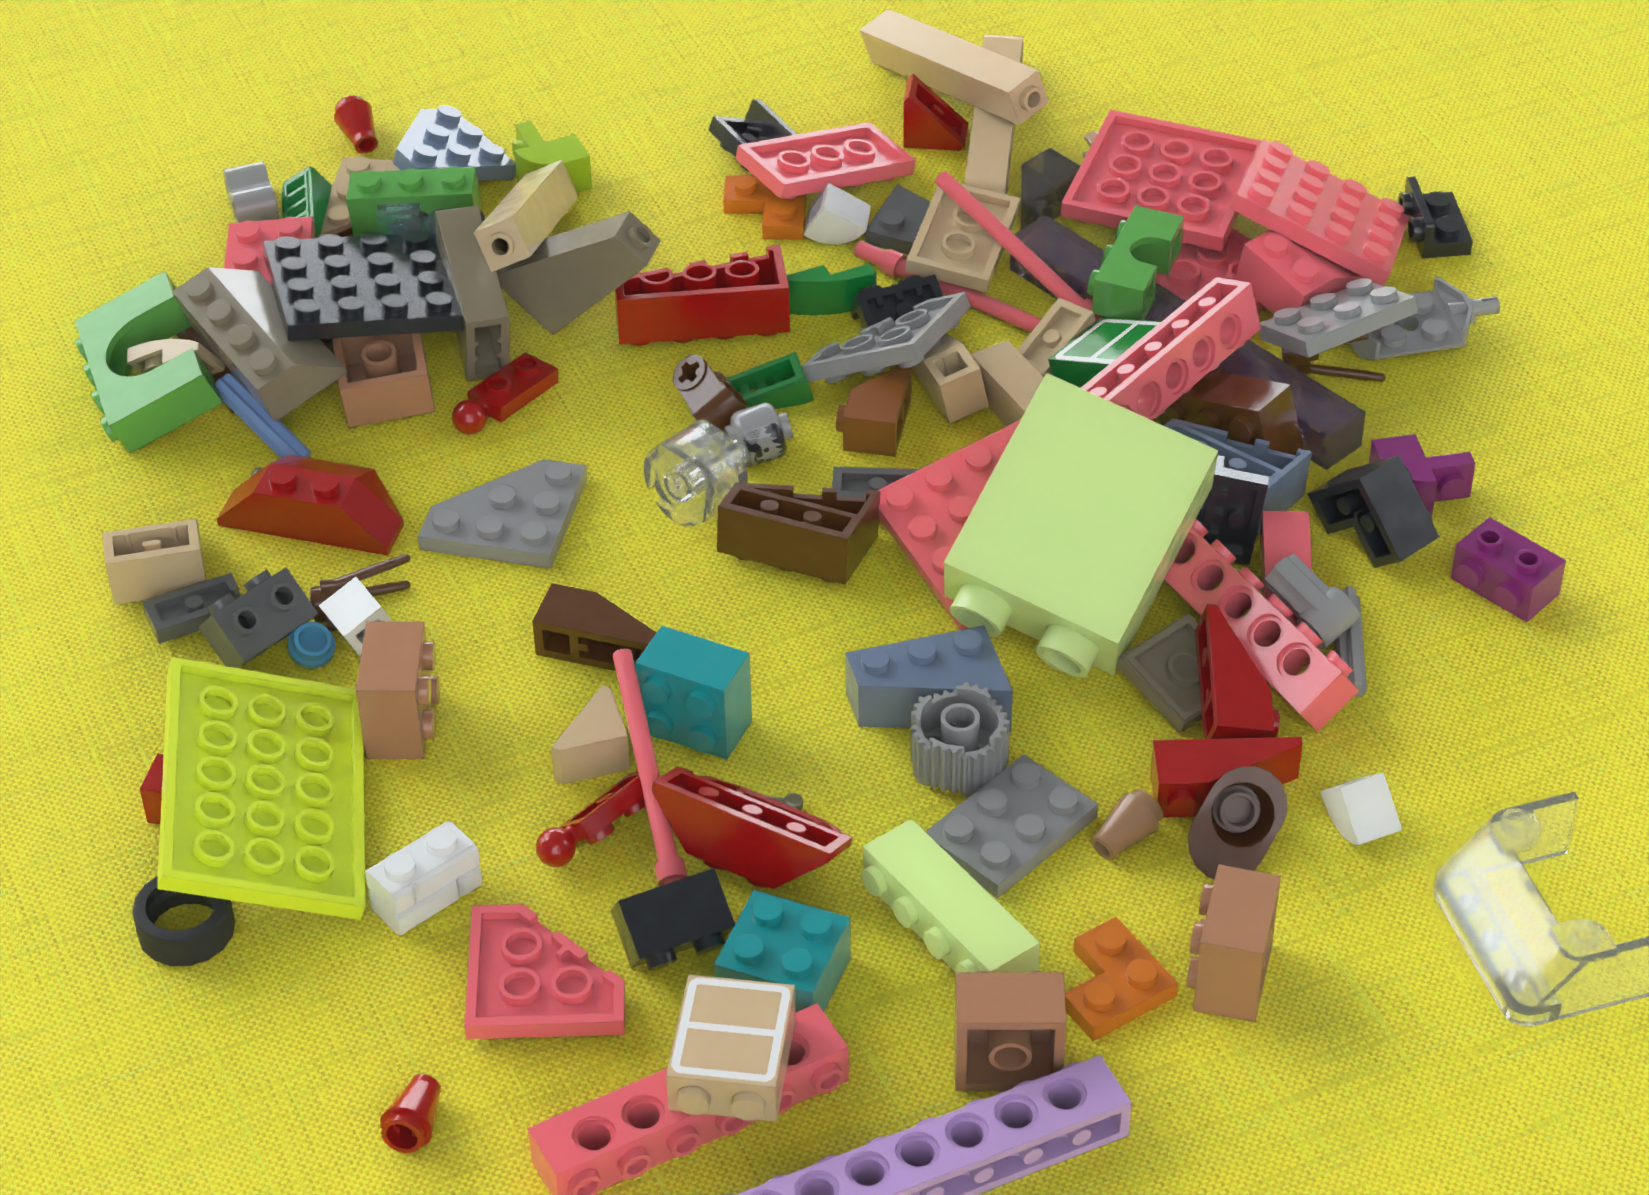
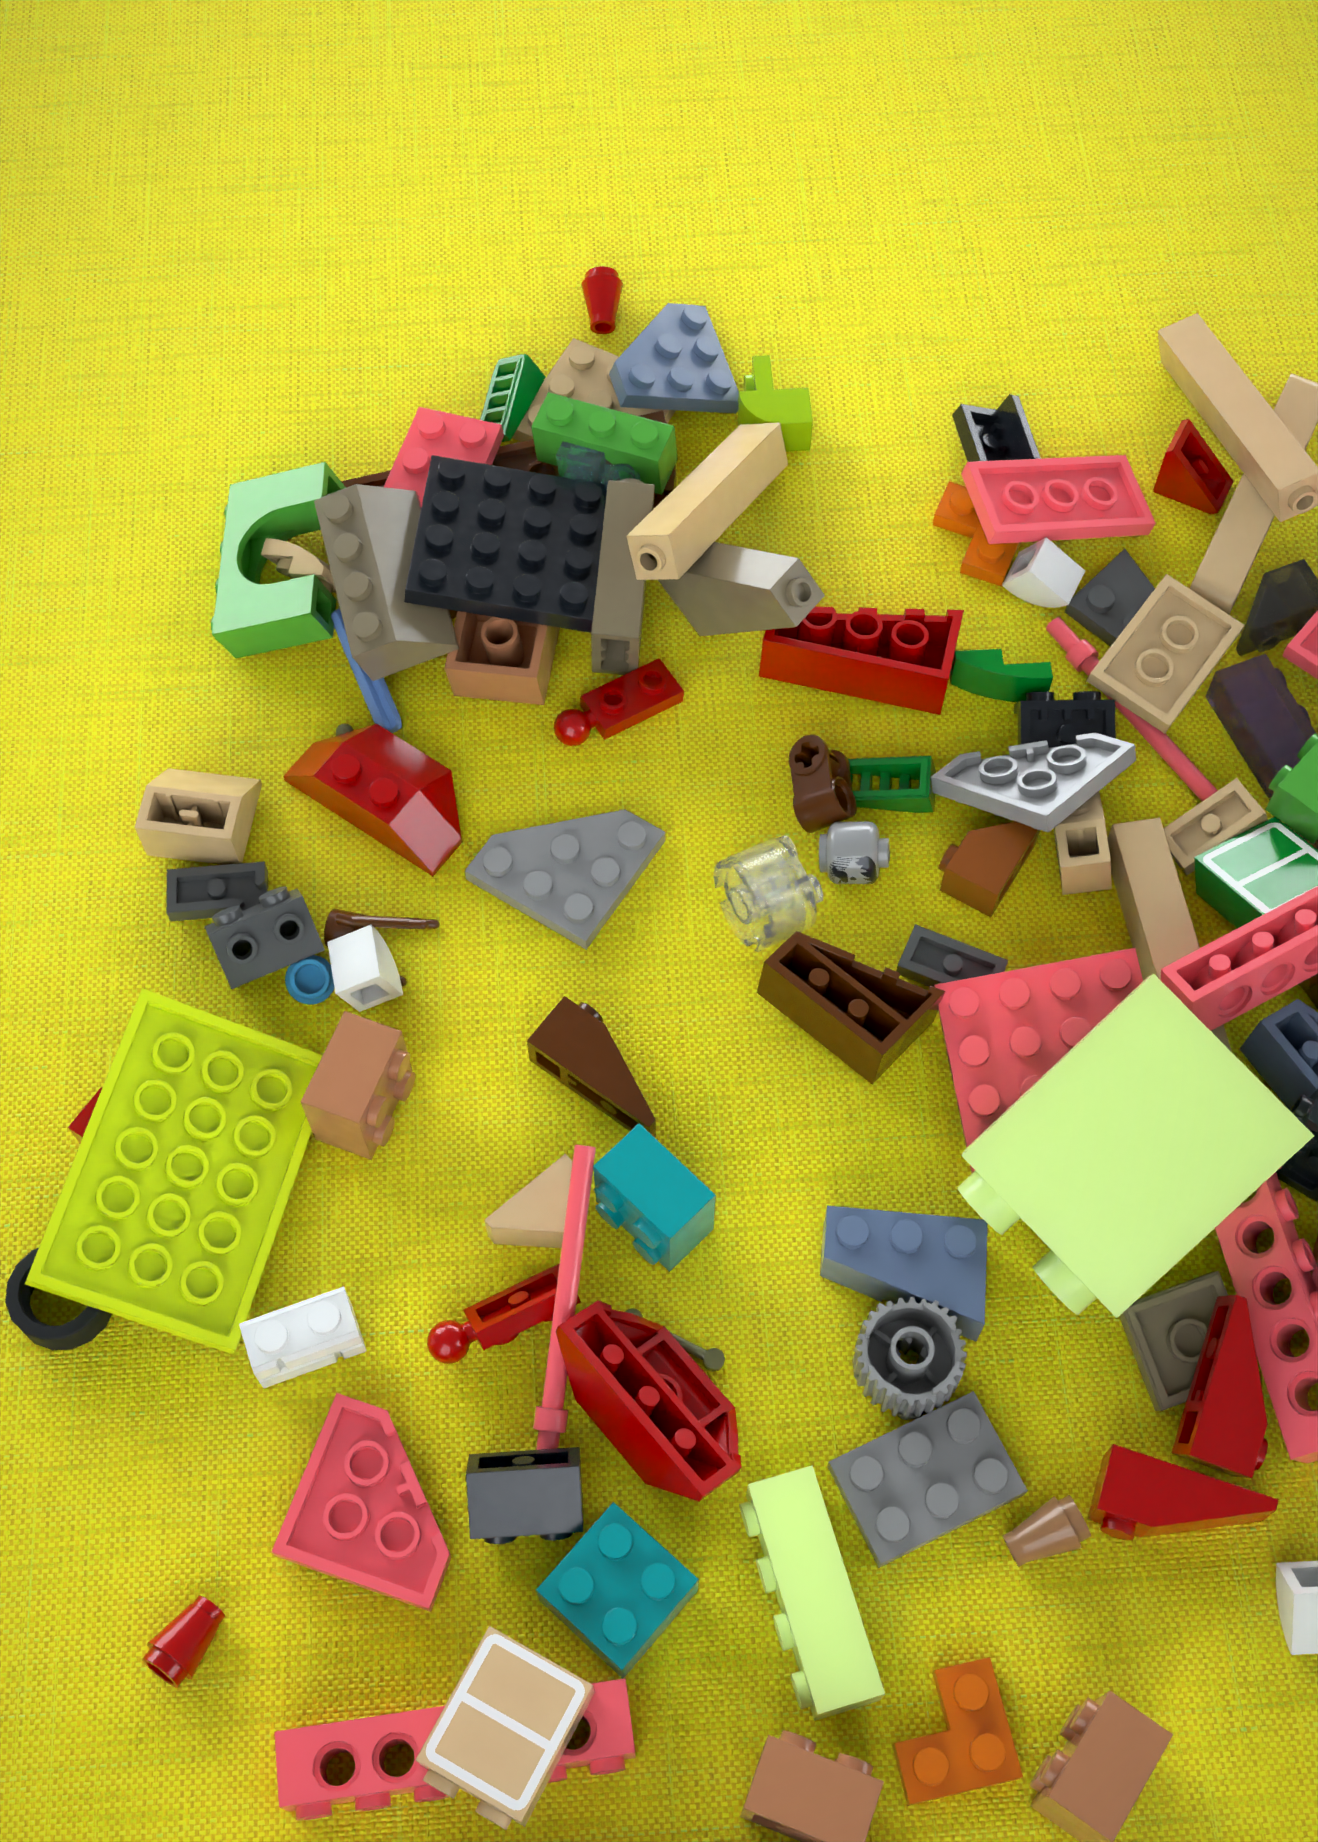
camera: 20 degrees right, 20 degrees up
(250, 193) = (464, 362): light grey axle -> none
(1010, 241) = (1215, 694): coral bar -> none
(1237, 820) = (1164, 1587): reddish brown piece -> none

